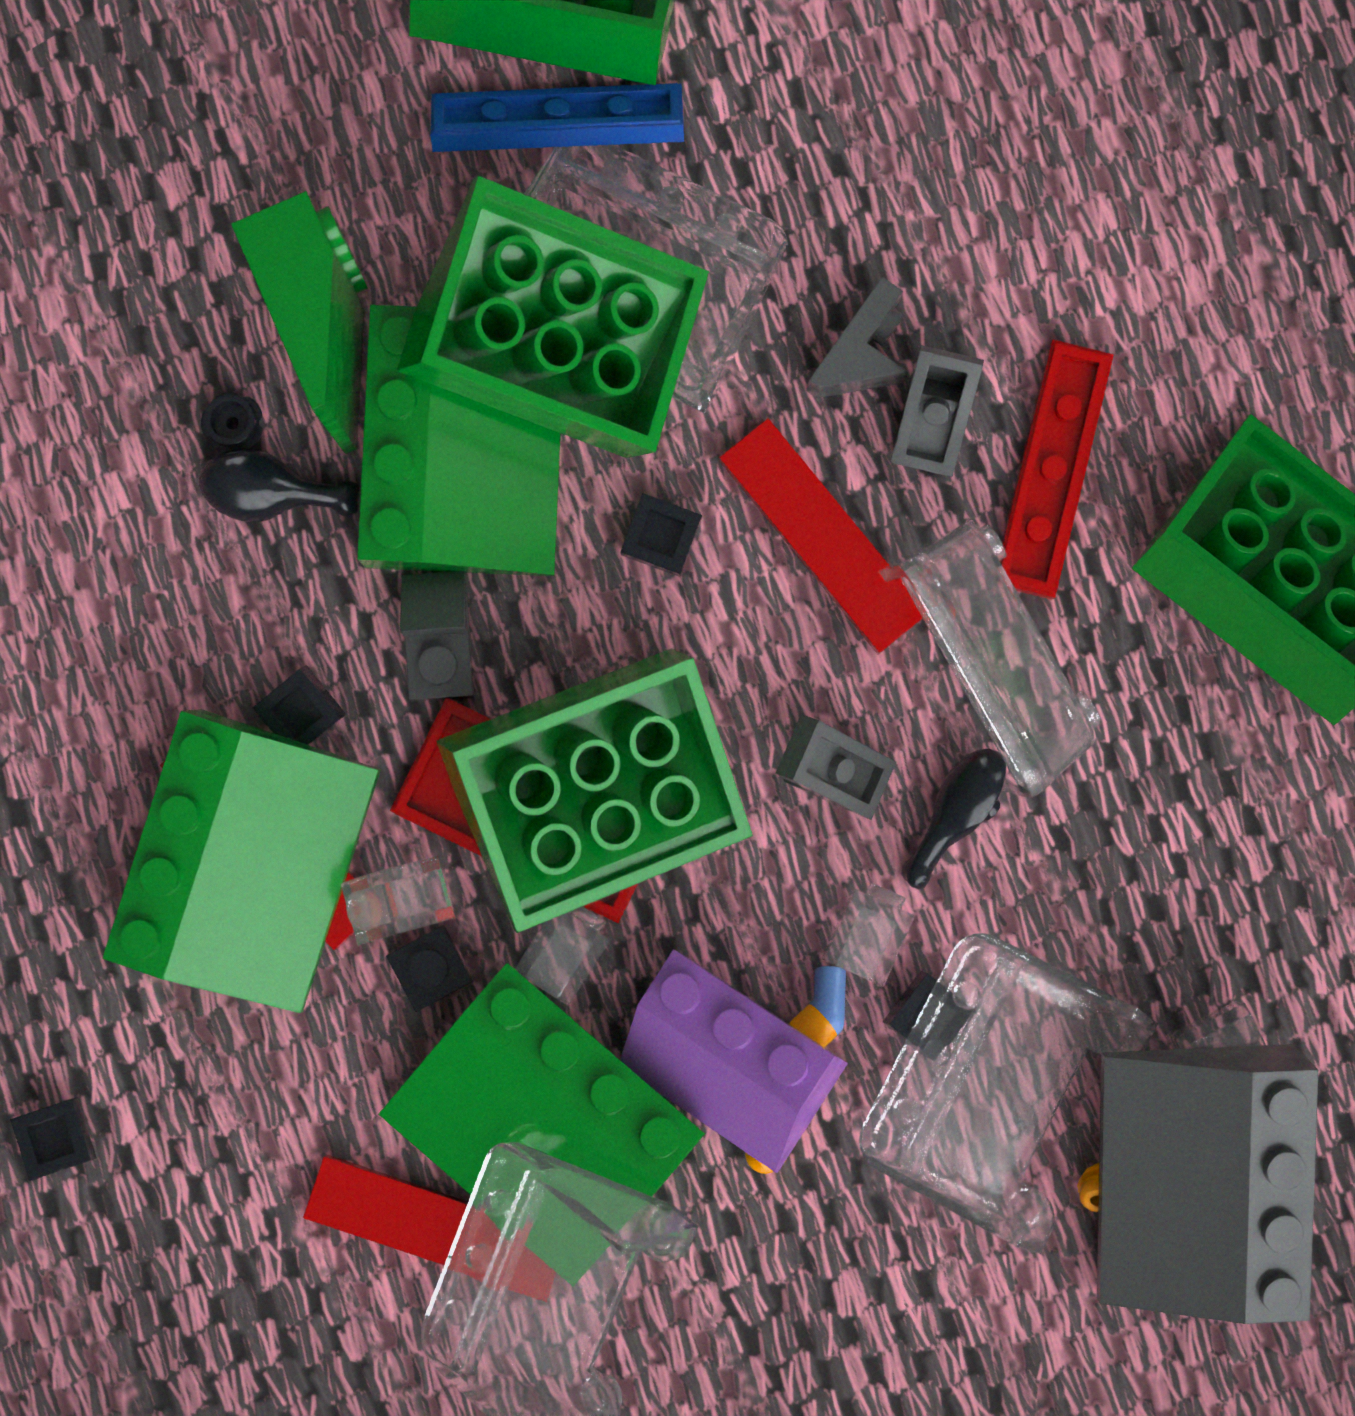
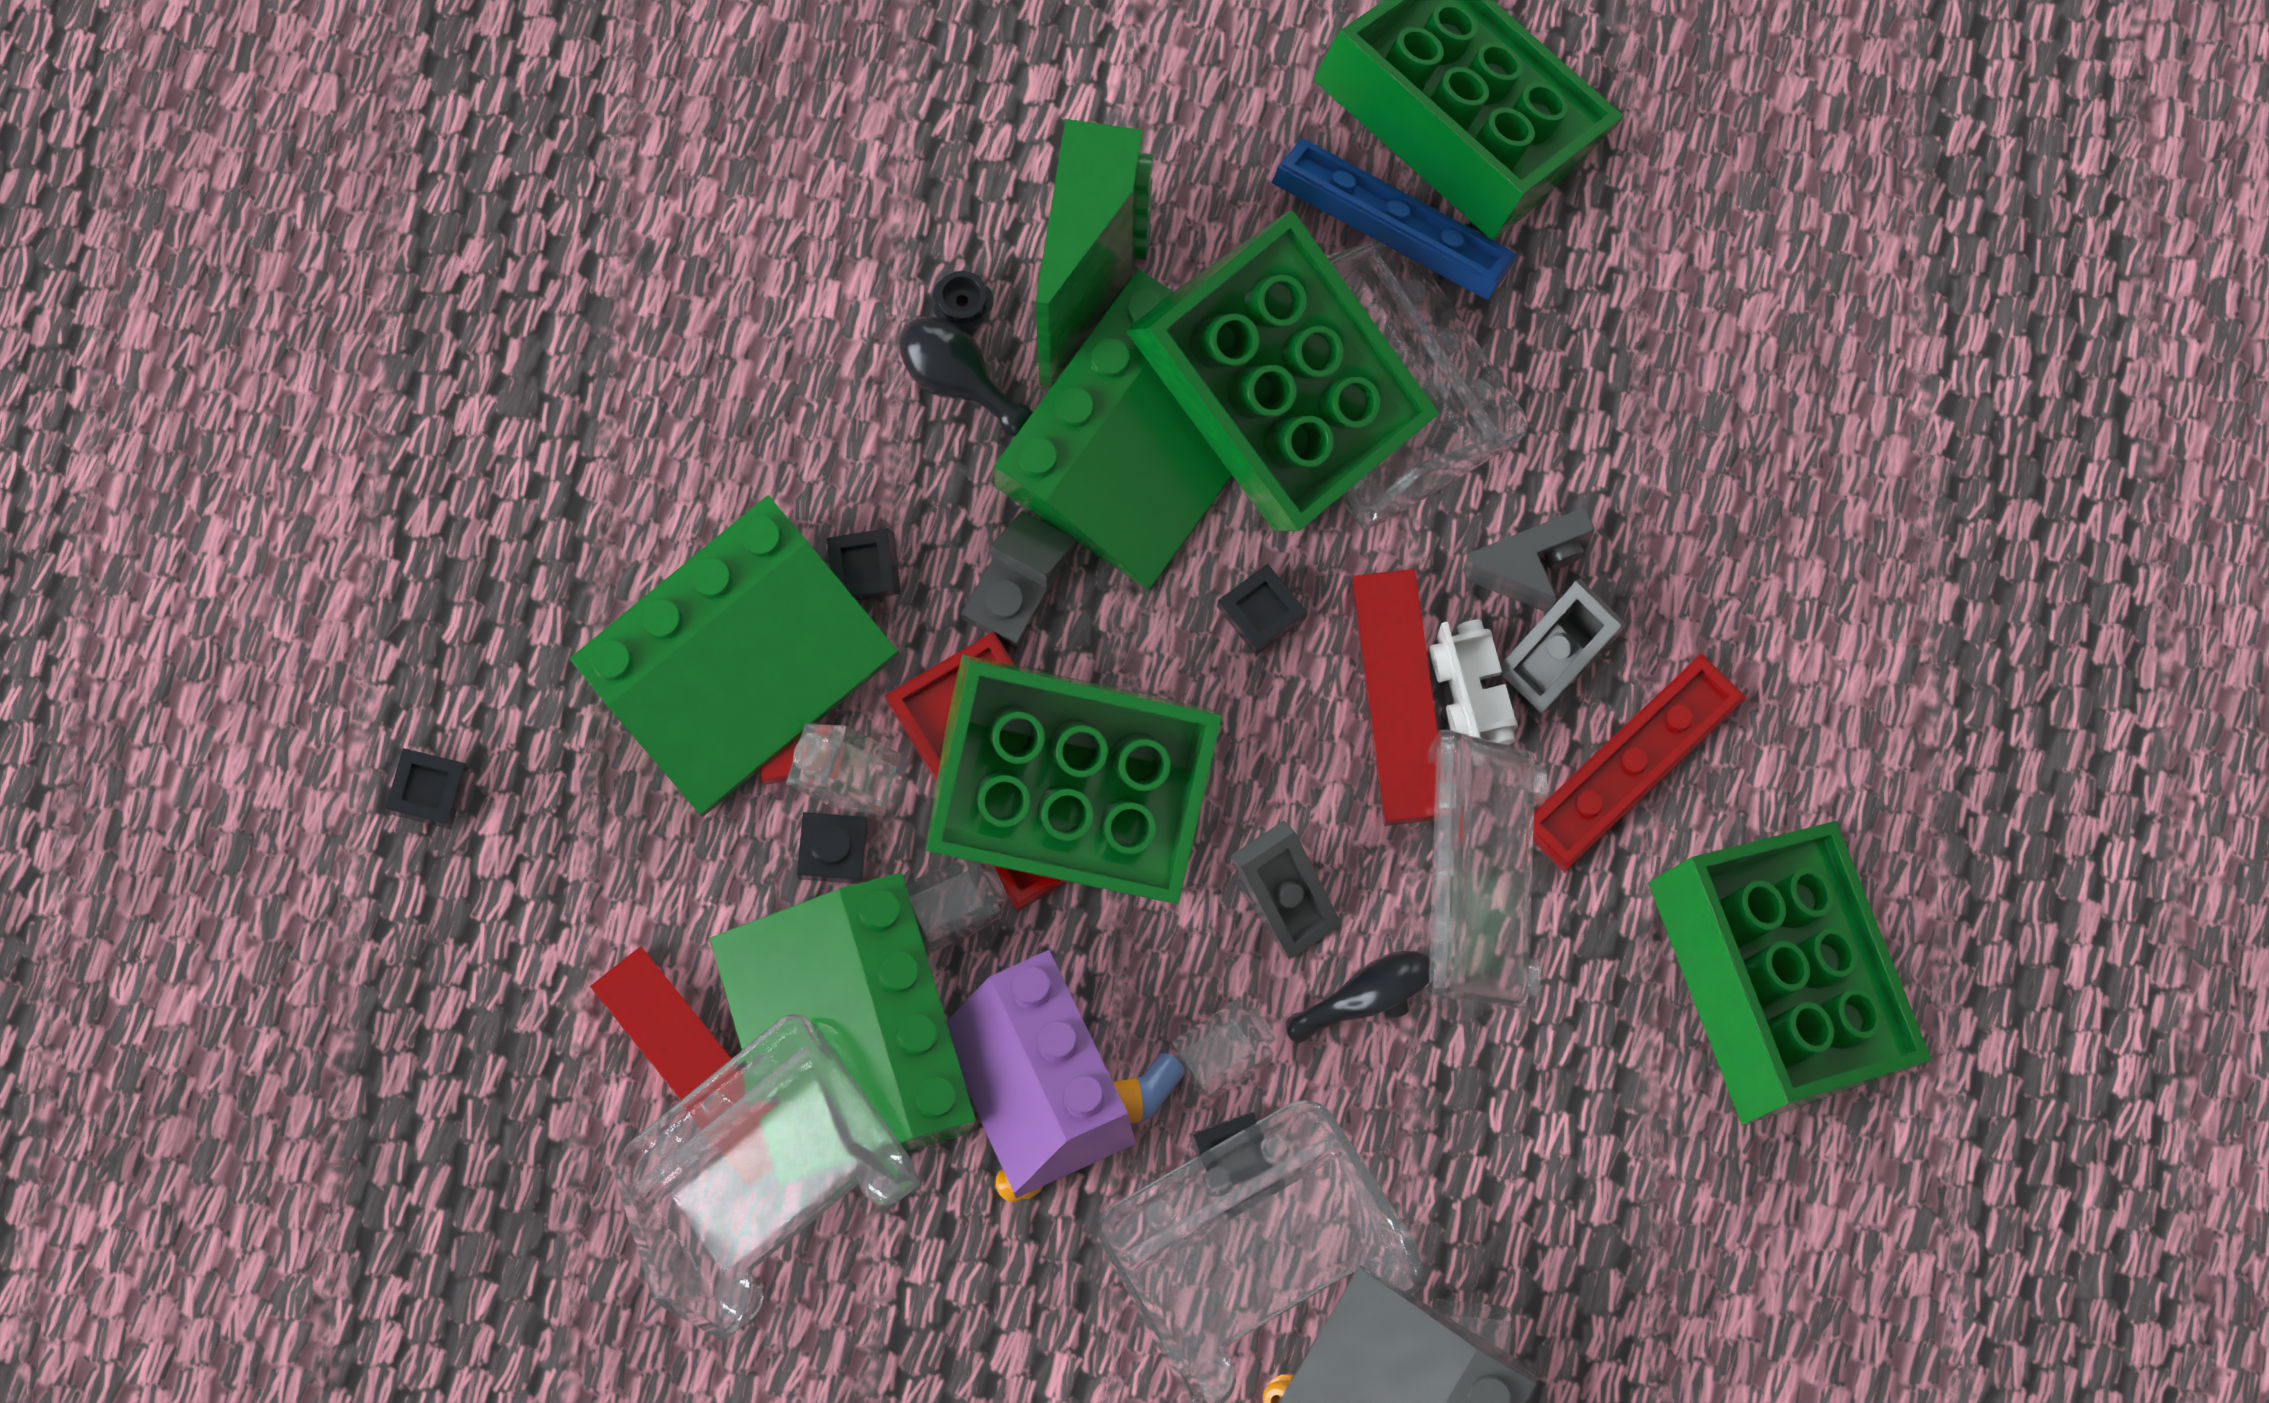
camera: 30 degrees right, 10 degrees down
(861, 477) = (1463, 663): none -> white hinge

